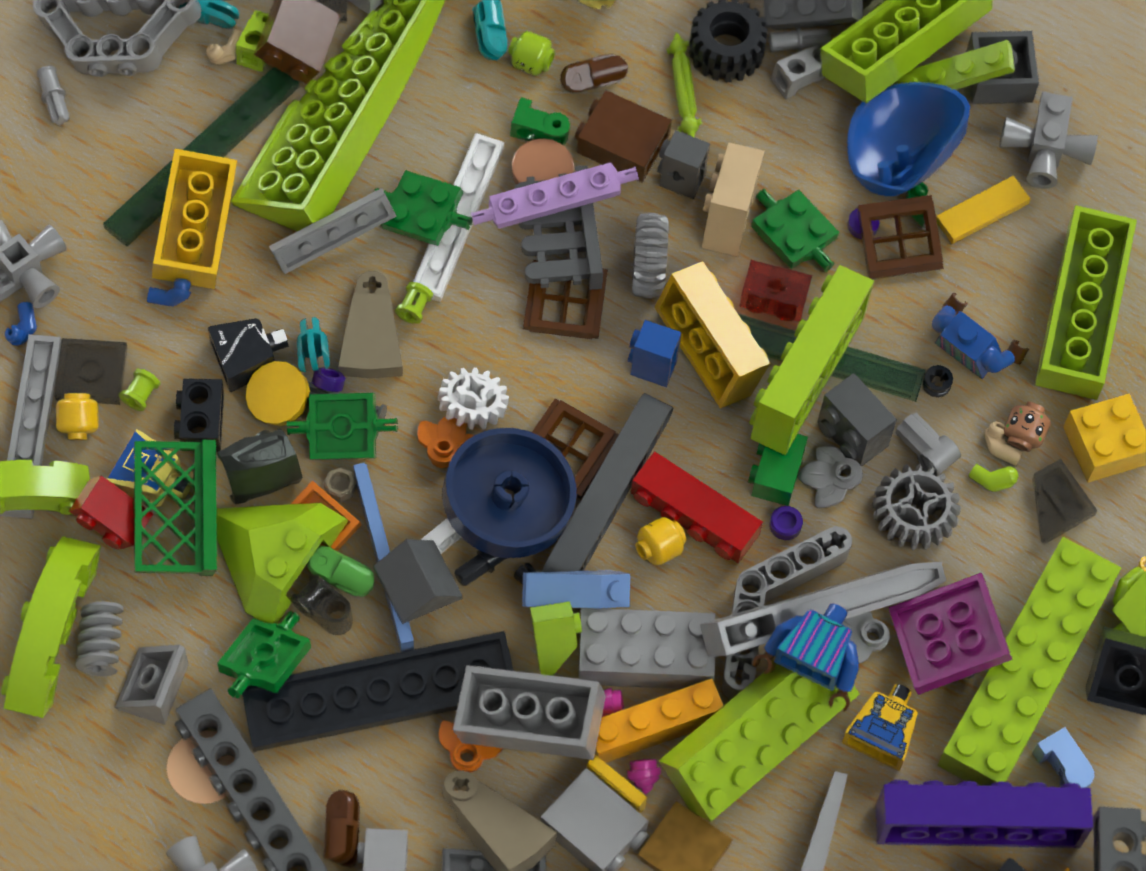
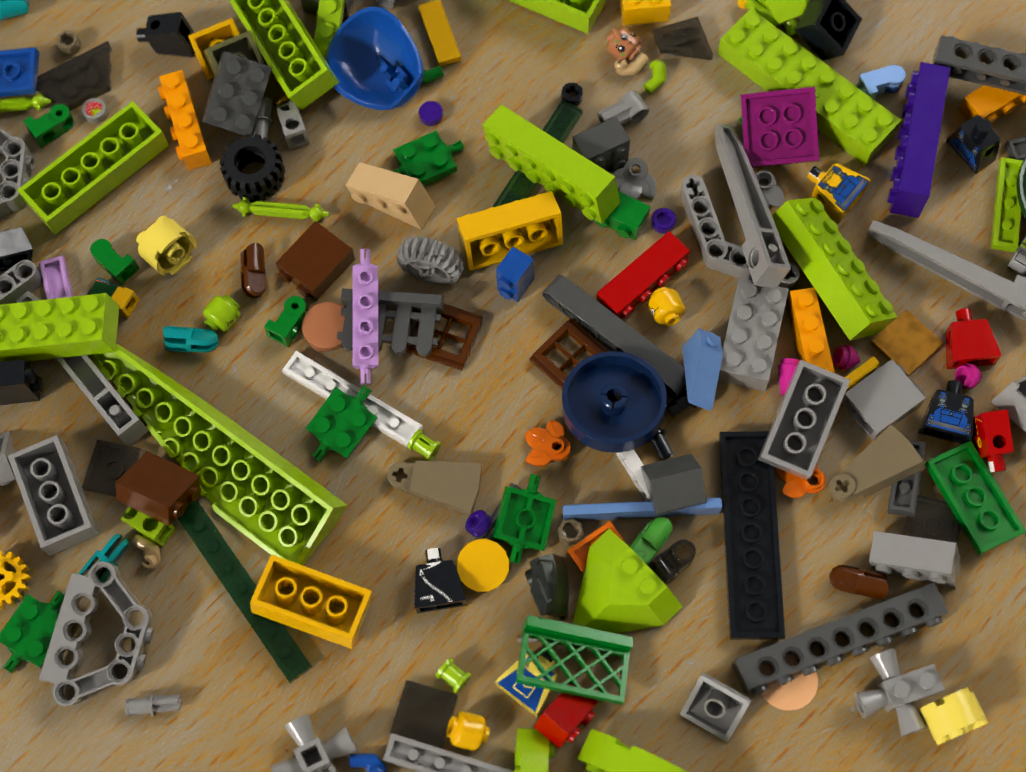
camera: 70 degrees left, 5 degrees up
(96, 638) = (671, 743): light grey piece -> none
(172, 296) = (372, 637): blue arm -> none
(206, 415) = (490, 622): black brick -> none
(264, 655) = (711, 614): green plate -> none
(312, 344) = (447, 528): teal arm -> none
(332, 231) = (349, 493): light grey tile -> none
(470, 398) = (520, 416): white gear -> none
(554, 635) = (738, 393): lime slope -> none
(683, 164) = (357, 220): dark grey brick -> none
(766, 279) = (476, 183): clear red brick -> none
(816, 649) = (797, 207): blue torso -> none
(897, 209) = (472, 92): reddish brown piece -> none
(938, 498) = (683, 123): light grey gear -> none
(971, 342) = (548, 64): blue torso -> none

